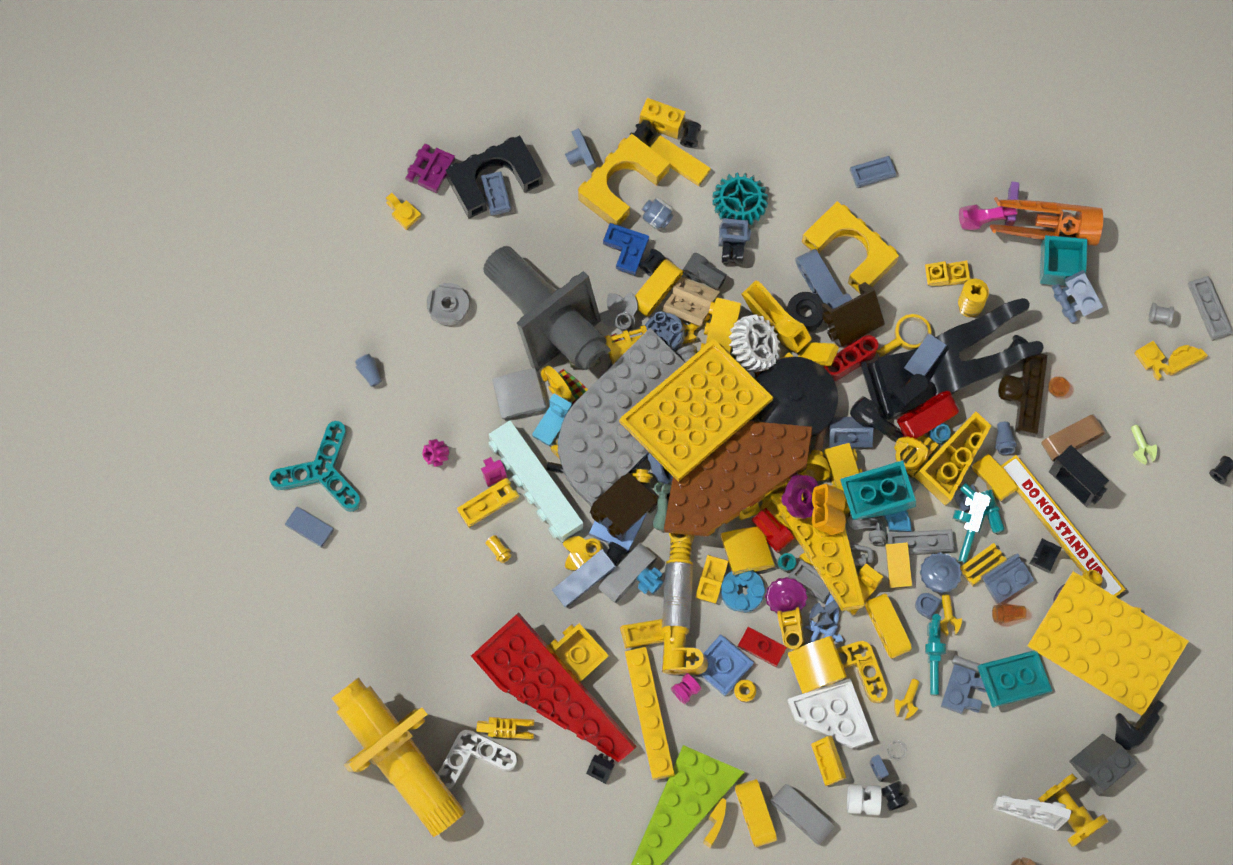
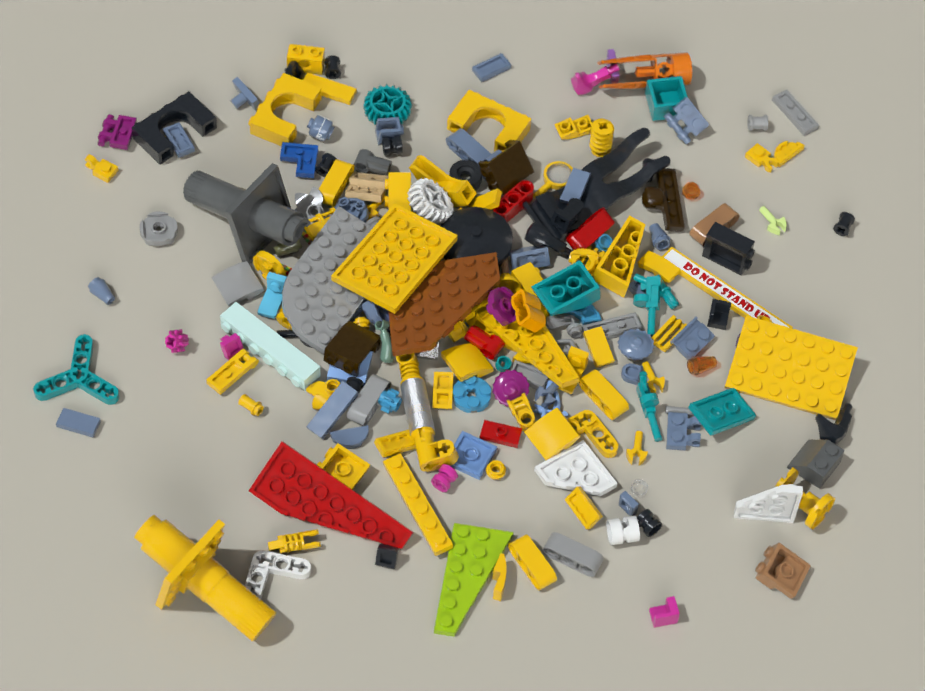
camera: 15 degrees left, 15 degrees down
(597, 613) = (350, 437): none -> sand blue tile

